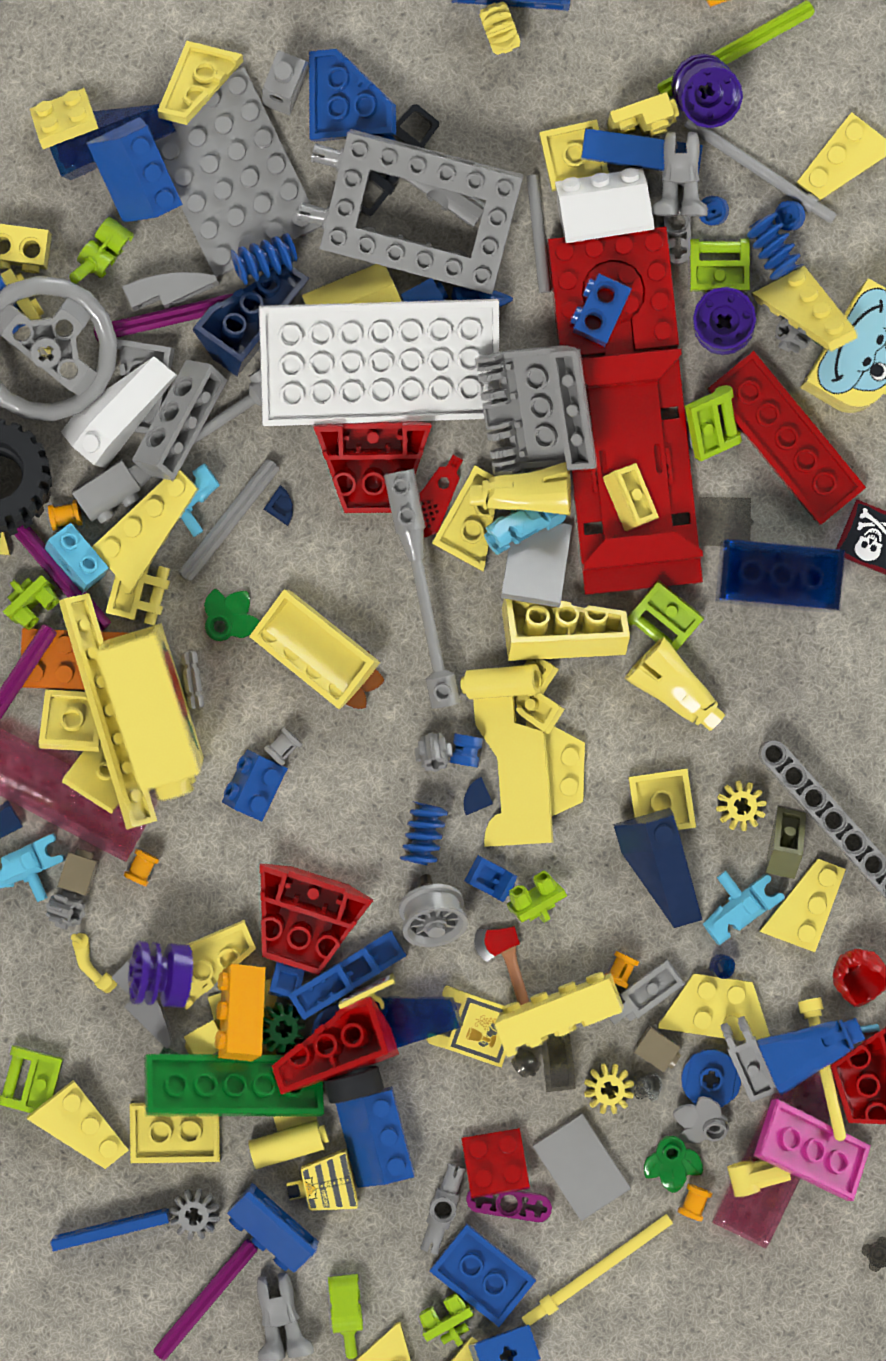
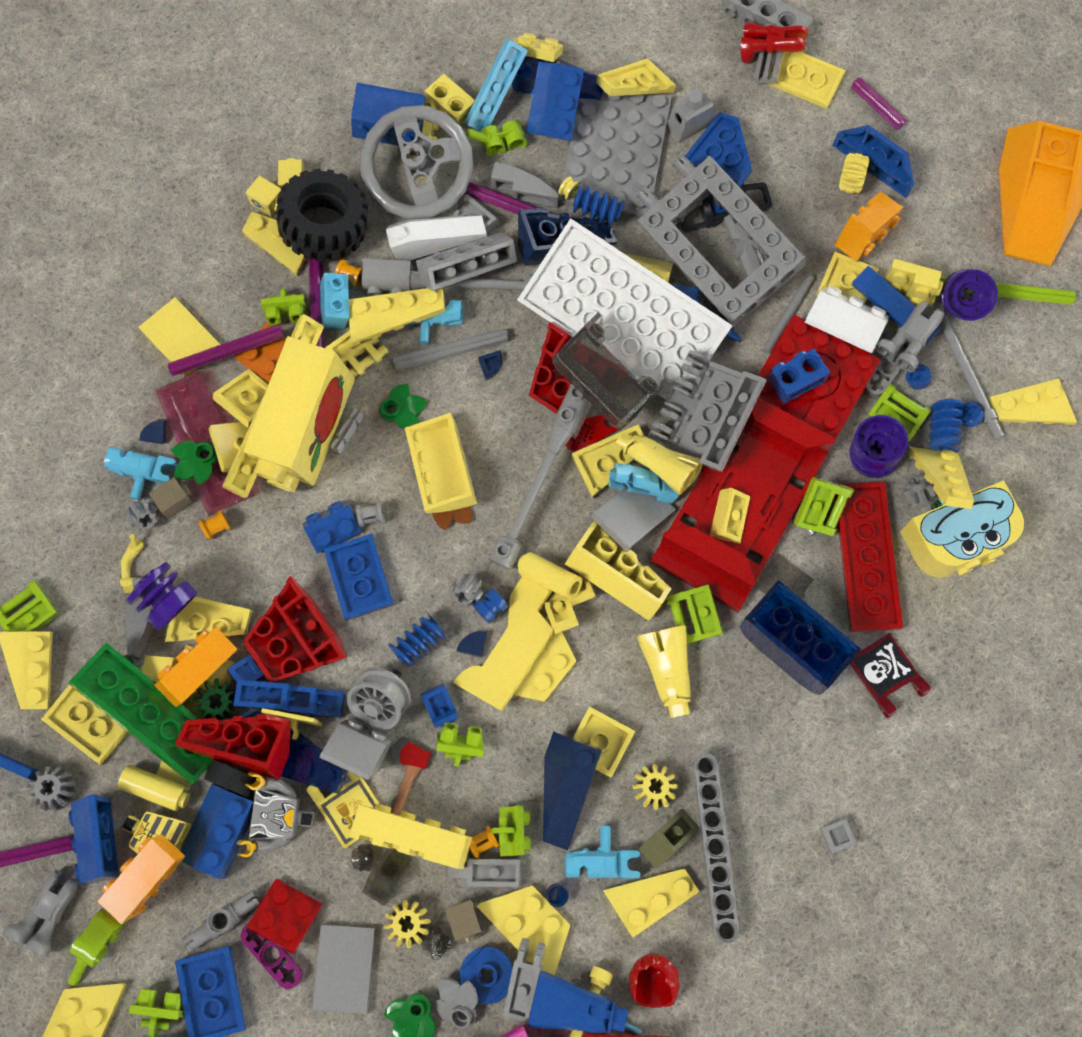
camera: 40 degrees right, 15 degrees down
(59, 200) = (496, 85): none -> medium azure plate
(73, 826) = (192, 462): none -> green plate
(221, 261) = (568, 188): none -> light yellow bush
(319, 814) = (358, 577): none -> blue plate
(349, 1227) = (140, 878): none -> light orange wedge
(410, 455) = (603, 377): none -> clear smoke windscreen
(418, 1087) = (274, 815): none -> light grey torso
(447, 974) = (356, 748): none -> light grey slope
(557, 79) = (869, 226): none -> light orange wedge
(641, 941) = (511, 831): none -> lime hips

